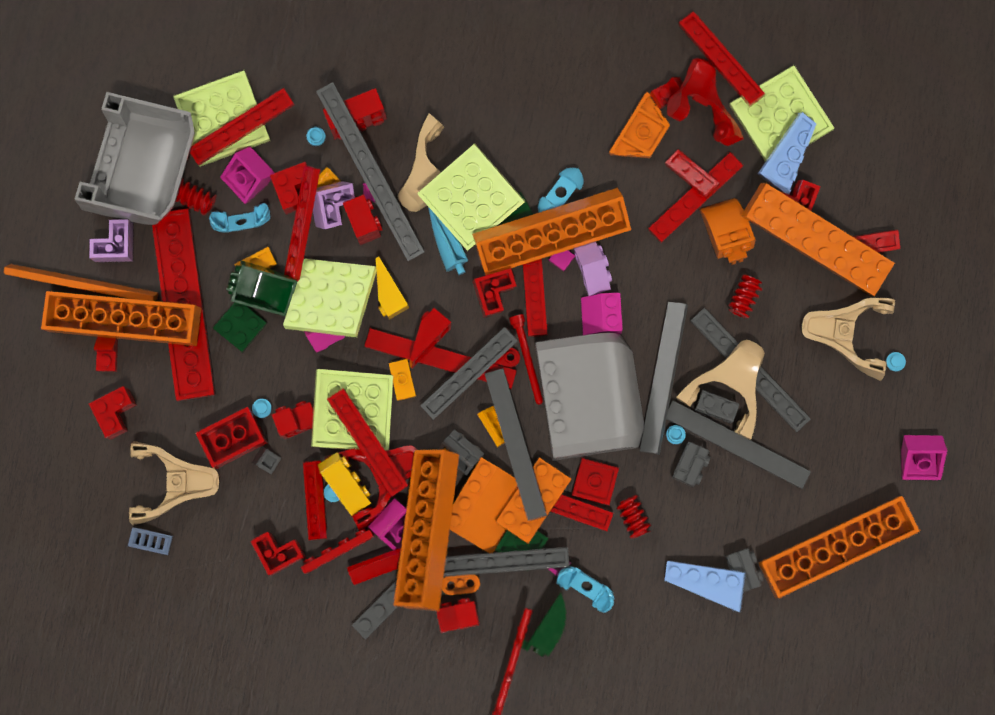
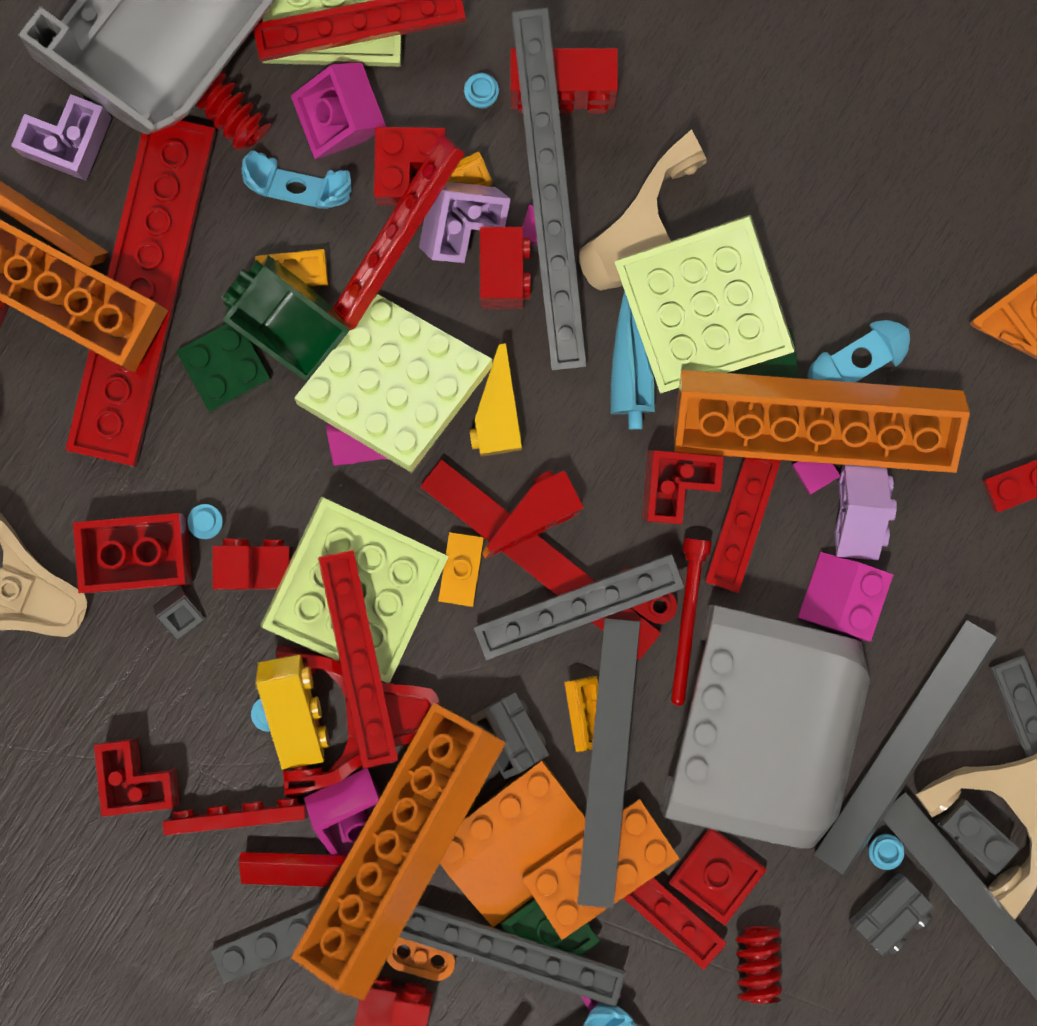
camera: 20 degrees right, 5 degrees up
(314, 501) = (230, 717): red plate -> none

